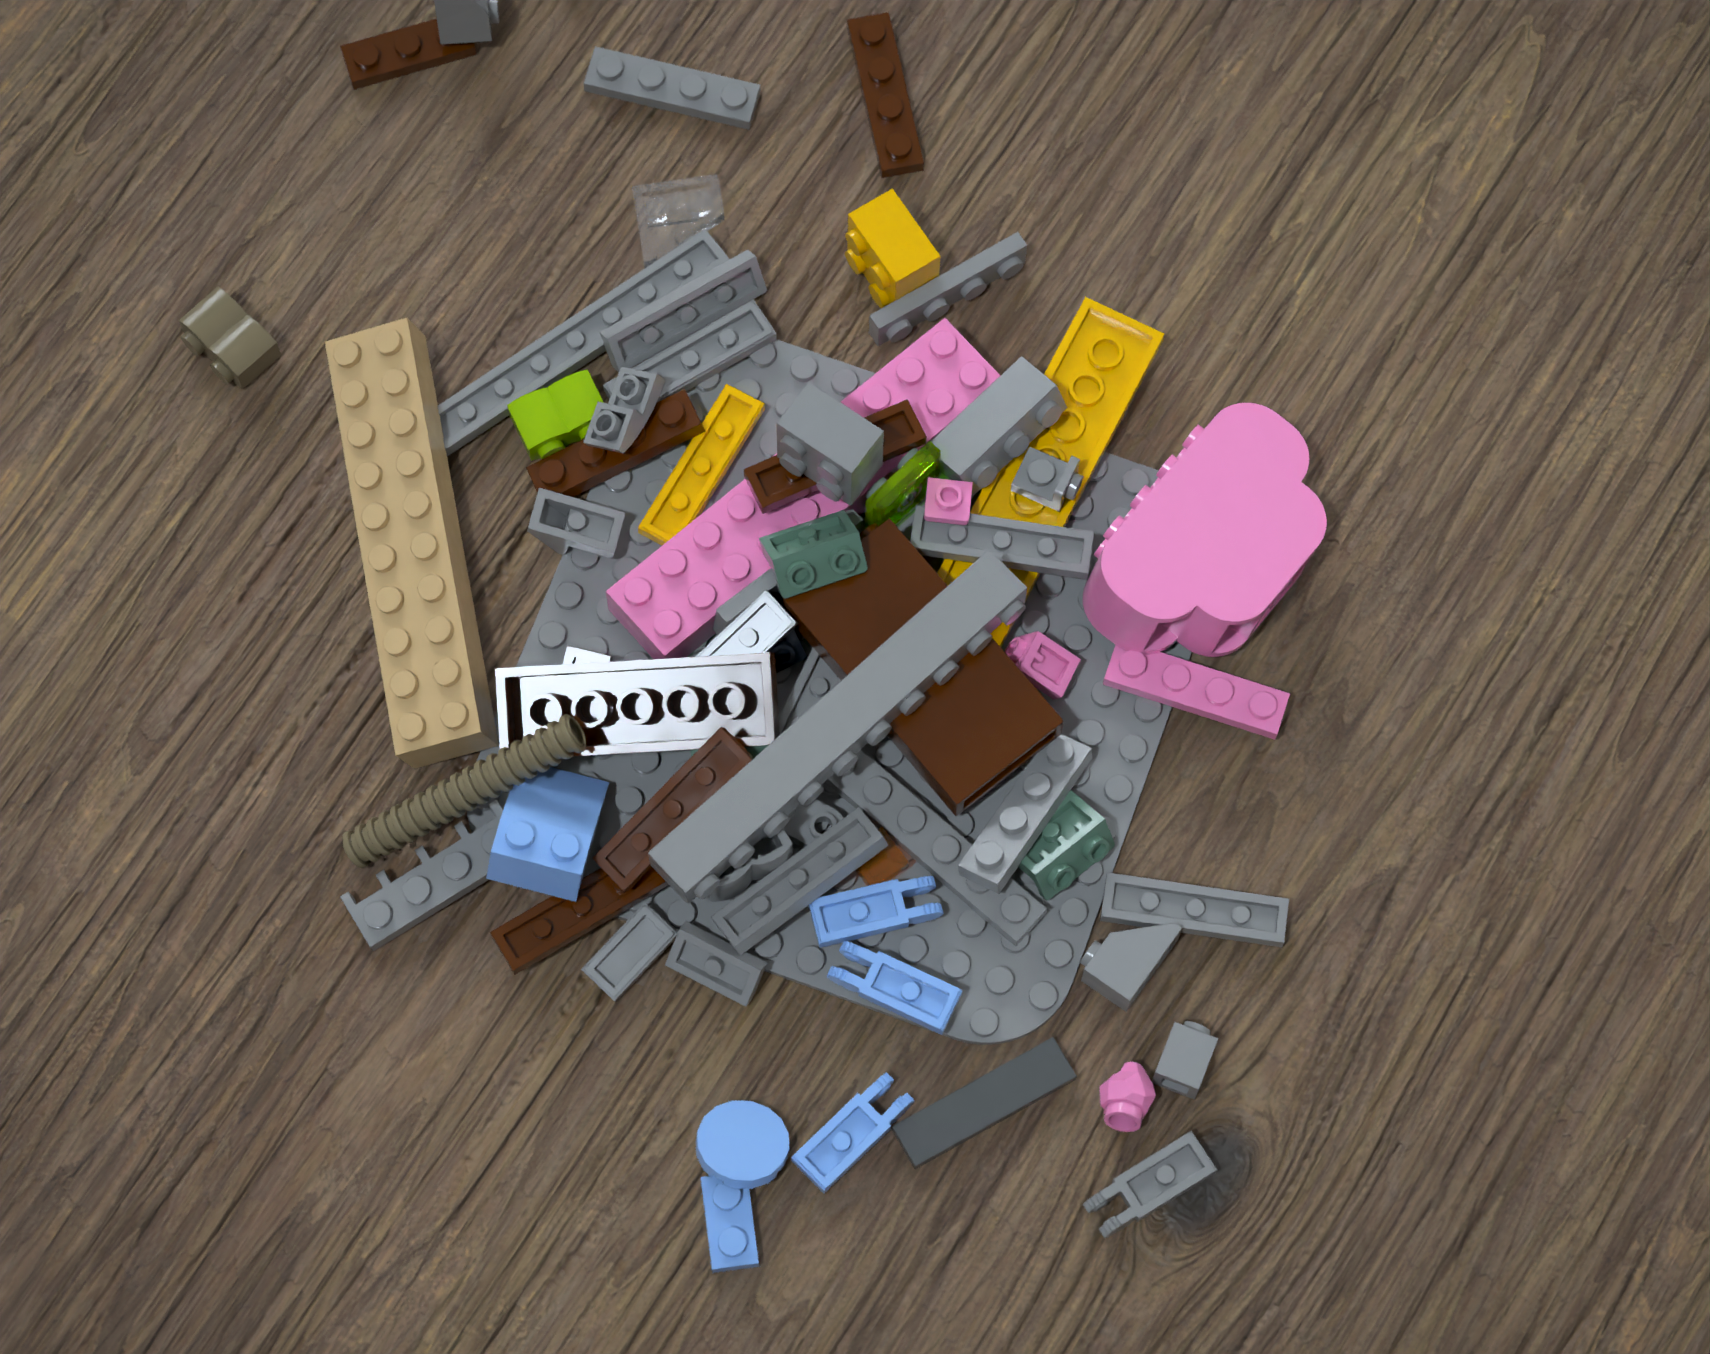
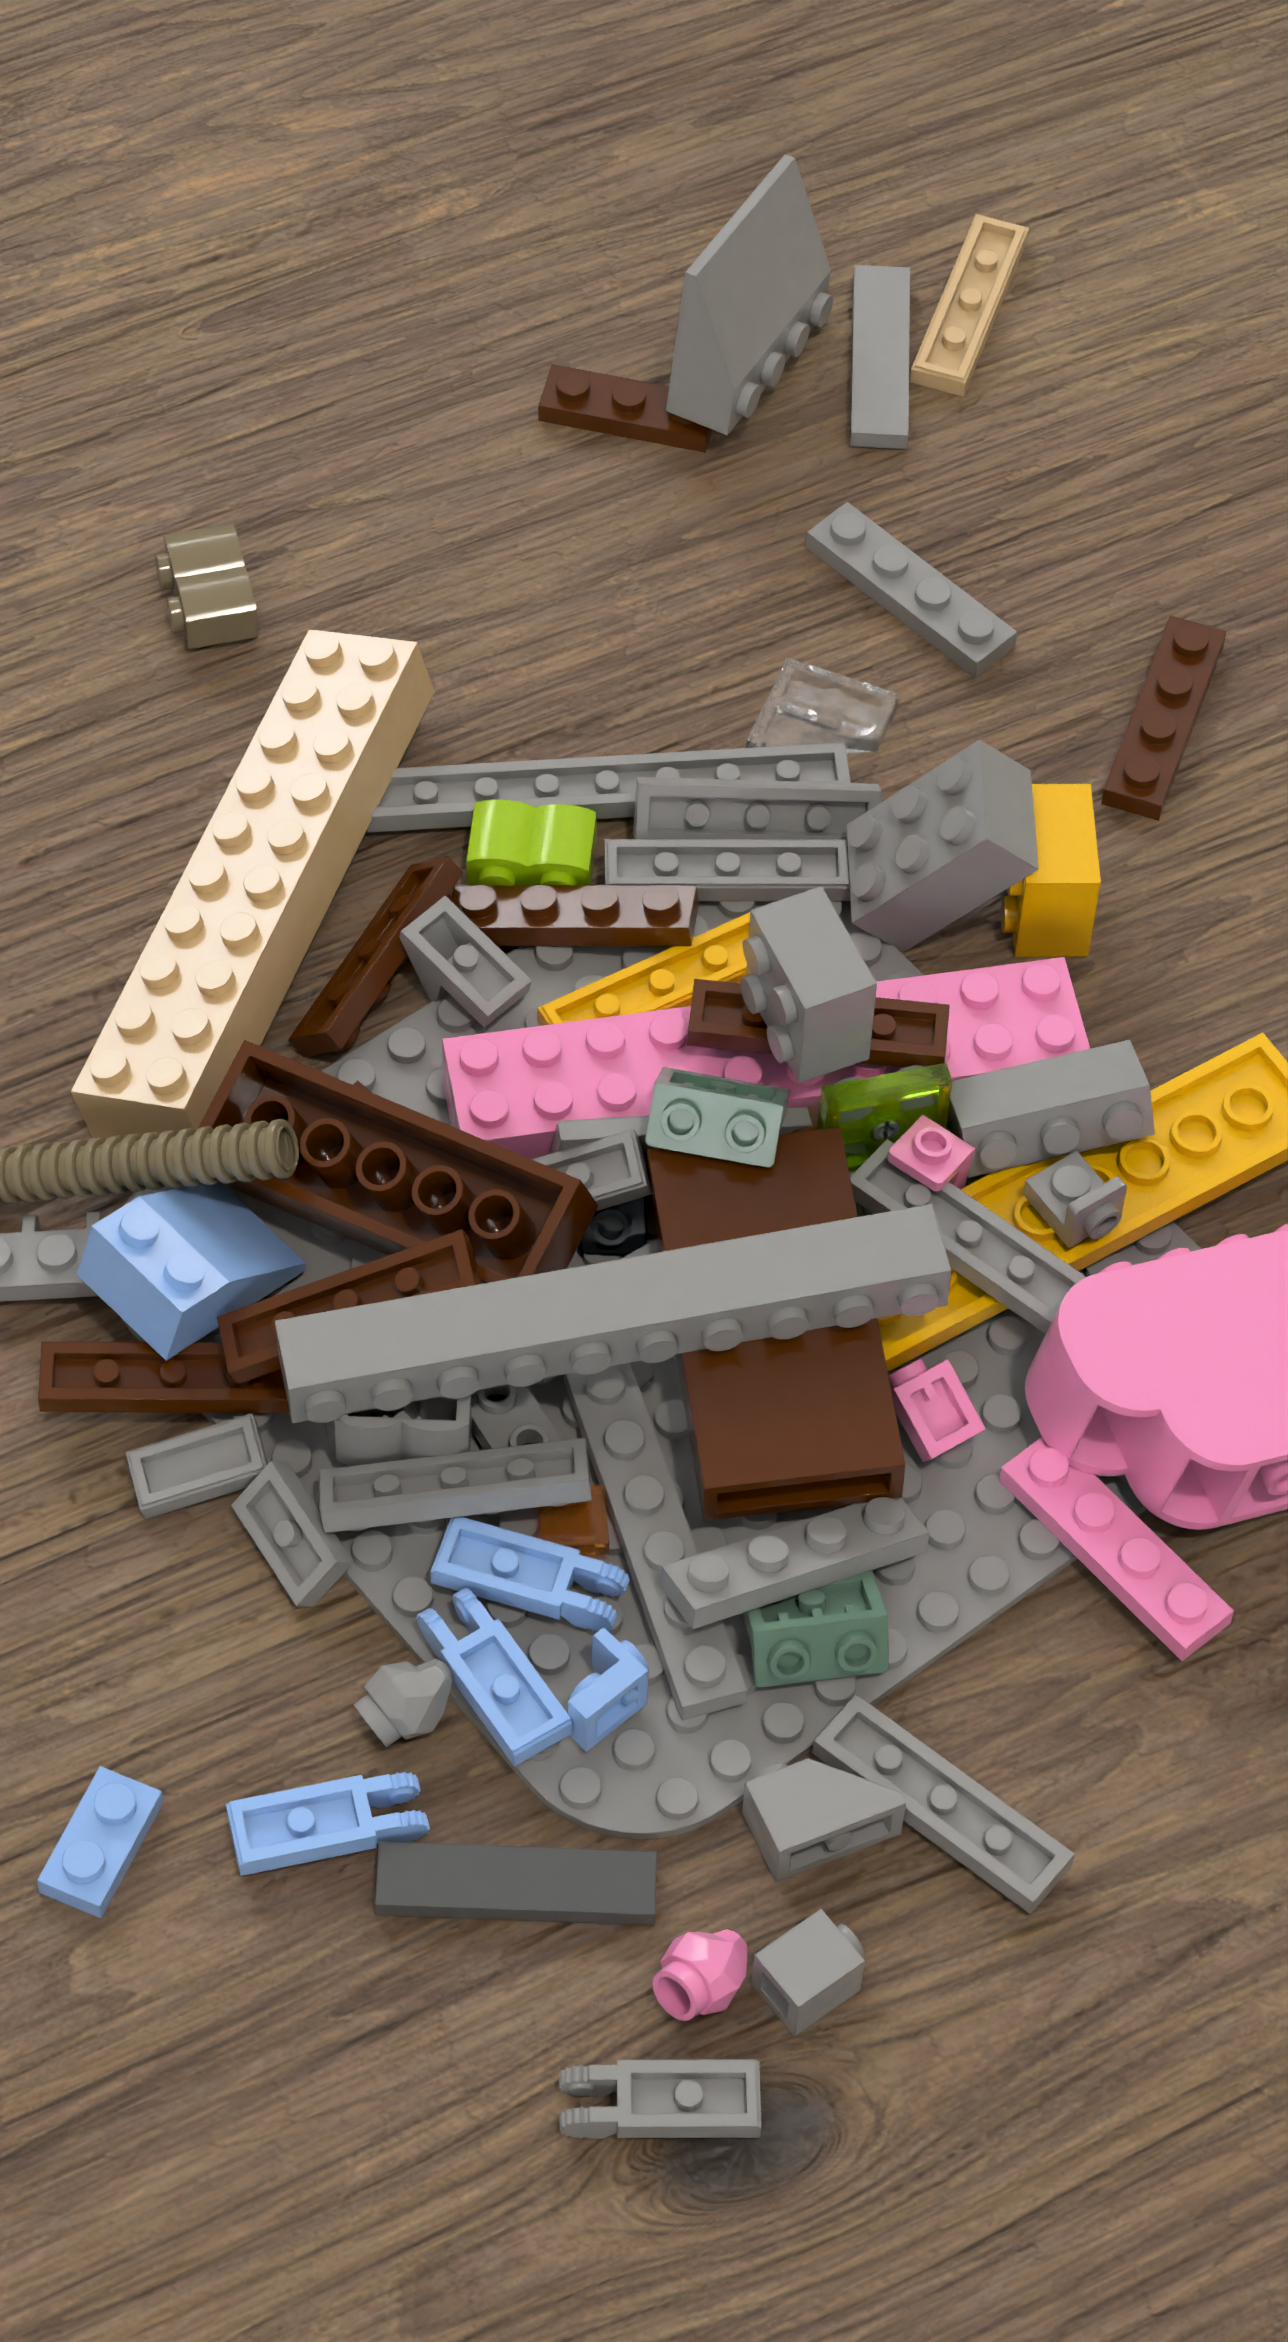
camera: 30 degrees right, 15 degrees down
(511, 546) = (372, 961): none -> reddish brown plate
(630, 405) = (590, 877): light grey slope -> none
(742, 1144) = (176, 1755): light blue tile -> none
(823, 279) = (941, 846): none -> light grey brick
(852, 1030) = (405, 1699): none -> light grey rock
(937, 295) = (1107, 947): light grey plate -> none
(969, 965) = (611, 1694): none -> light blue bracket

